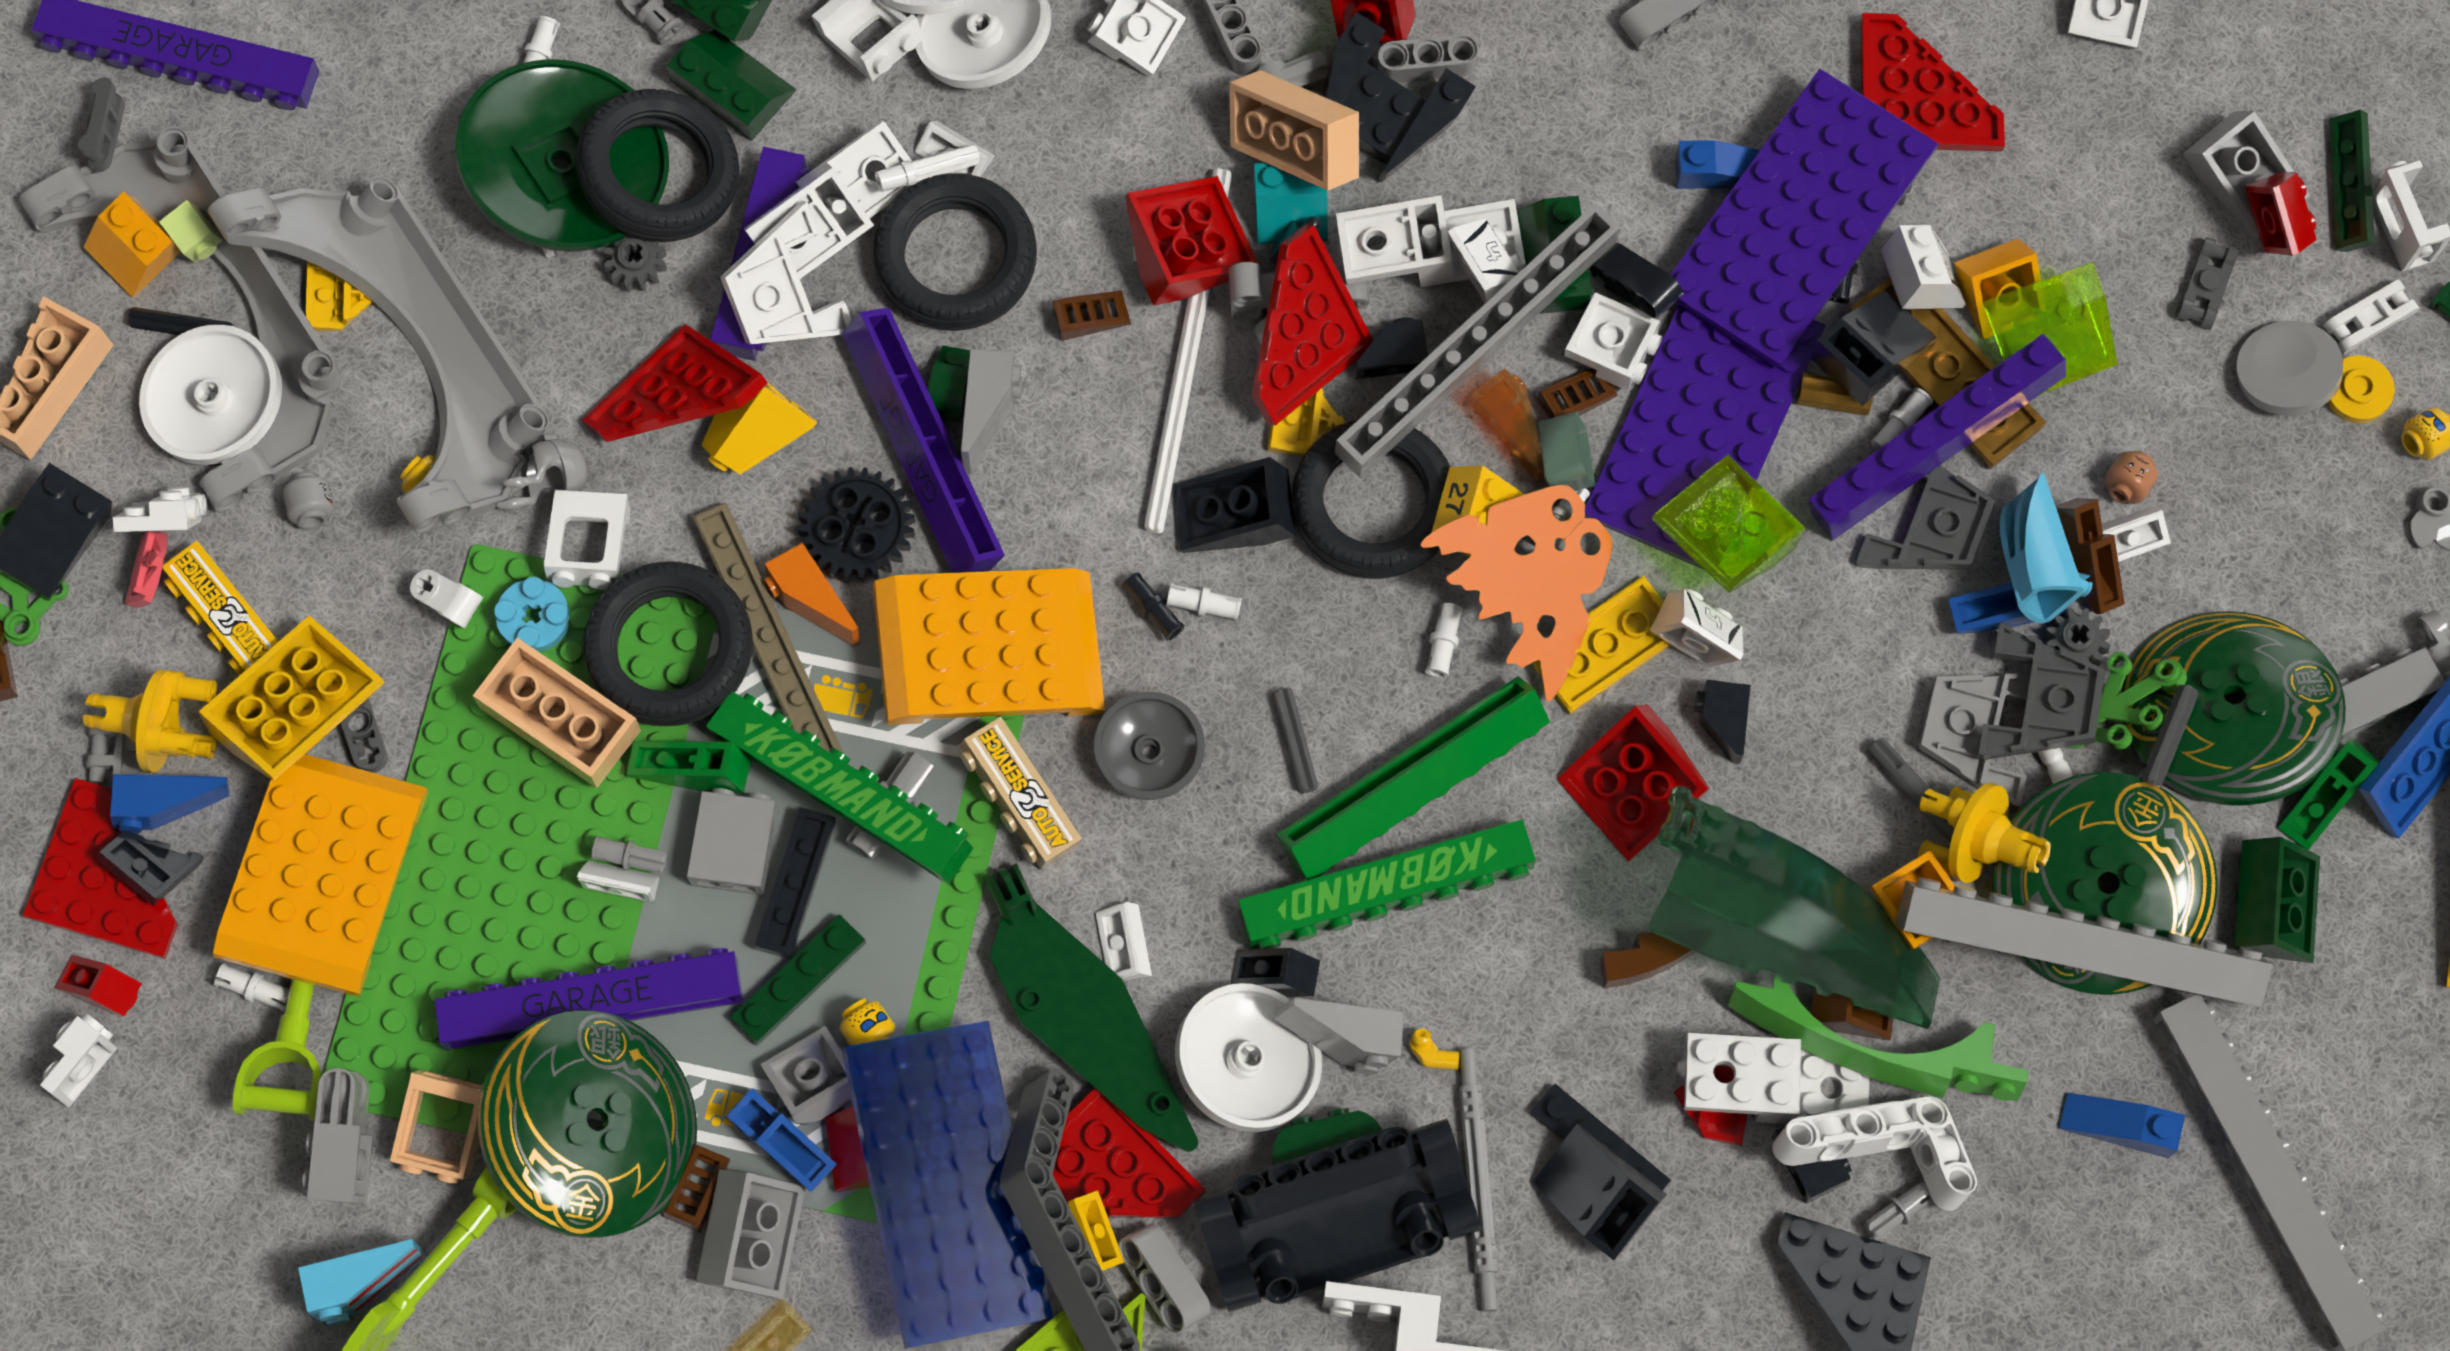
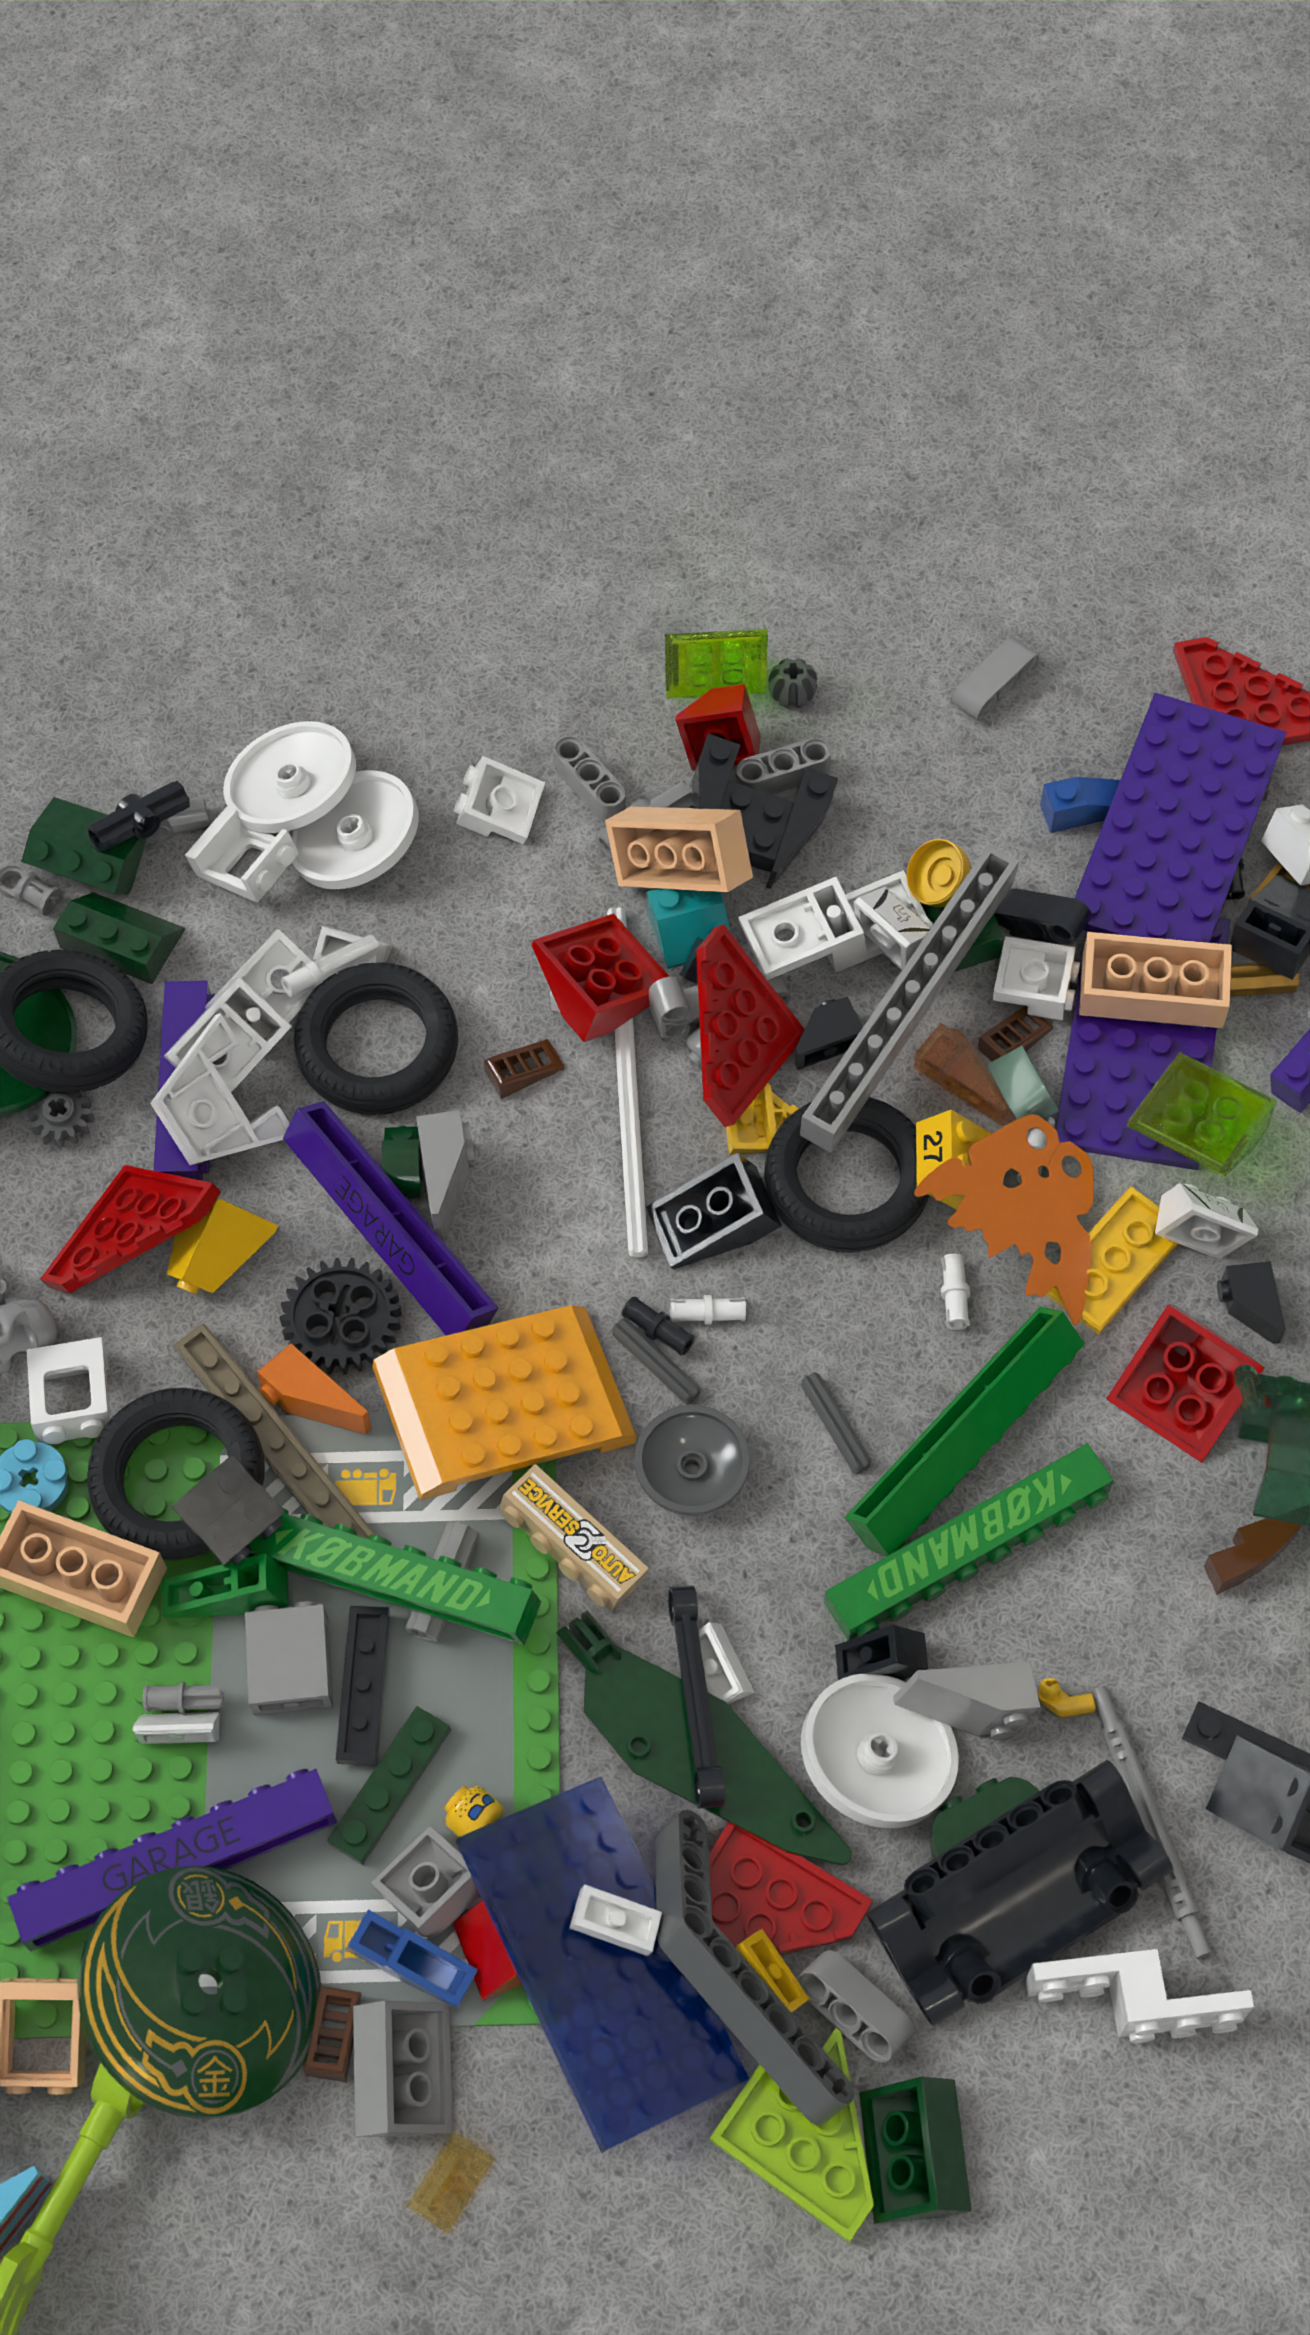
camera: 10 degrees left, 10 degrees down
(707, 695) = (229, 1511): none -> black plate
(966, 1153) = (616, 1920): none -> white plate
(1085, 1038) = (708, 1776): none -> black piece
(1142, 640) = (656, 1361): none -> dark grey axle
(1543, 212) = (937, 872): none -> yellow piece
(1725, 375) = (1155, 980): none -> light nougat brick

